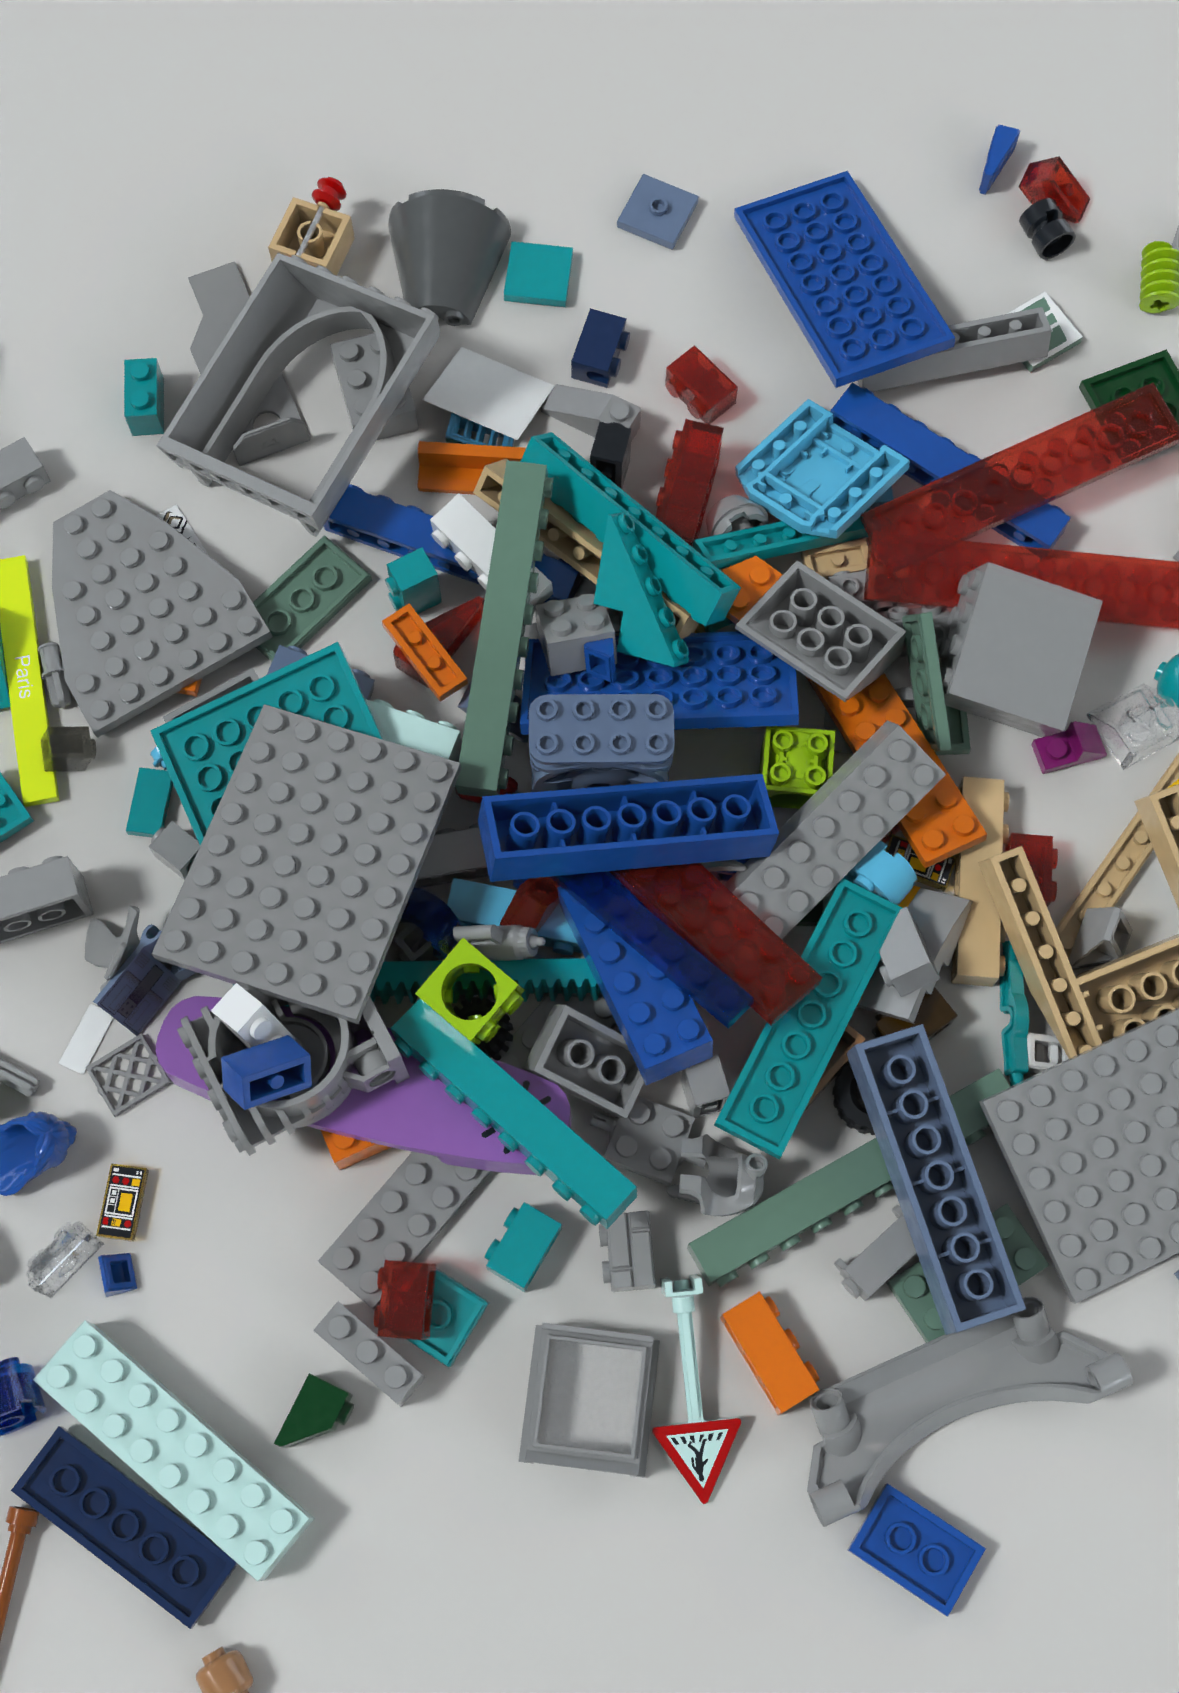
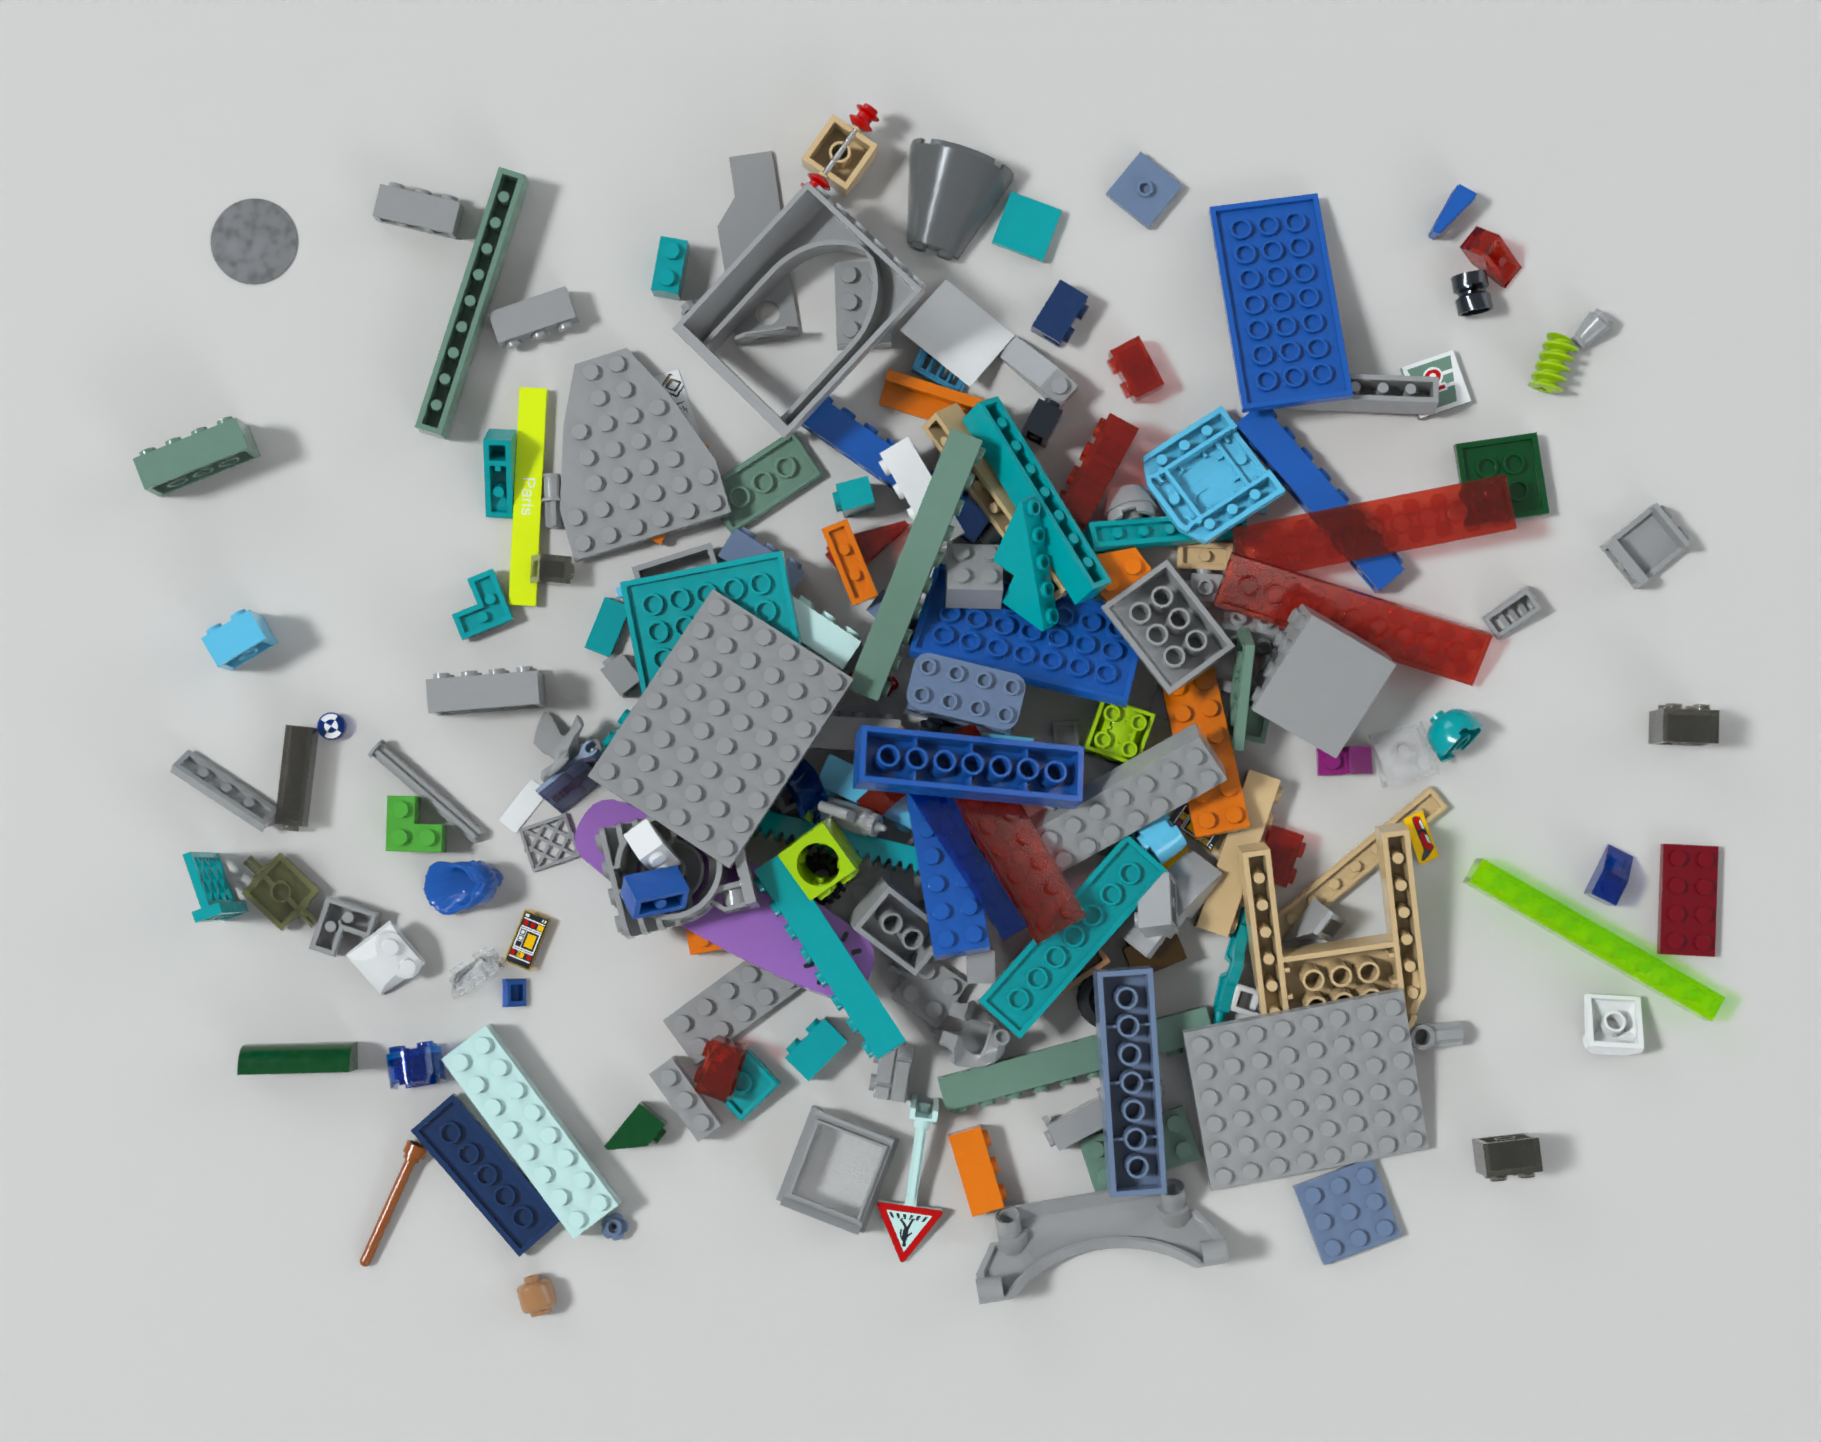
camera: 15 degrees right, 15 degrees up
(301, 1550) = (608, 1221): none -> sand blue plate
(600, 659) = (987, 607): blue slope -> none
(916, 1549) = (1043, 1332): blue plate -> none

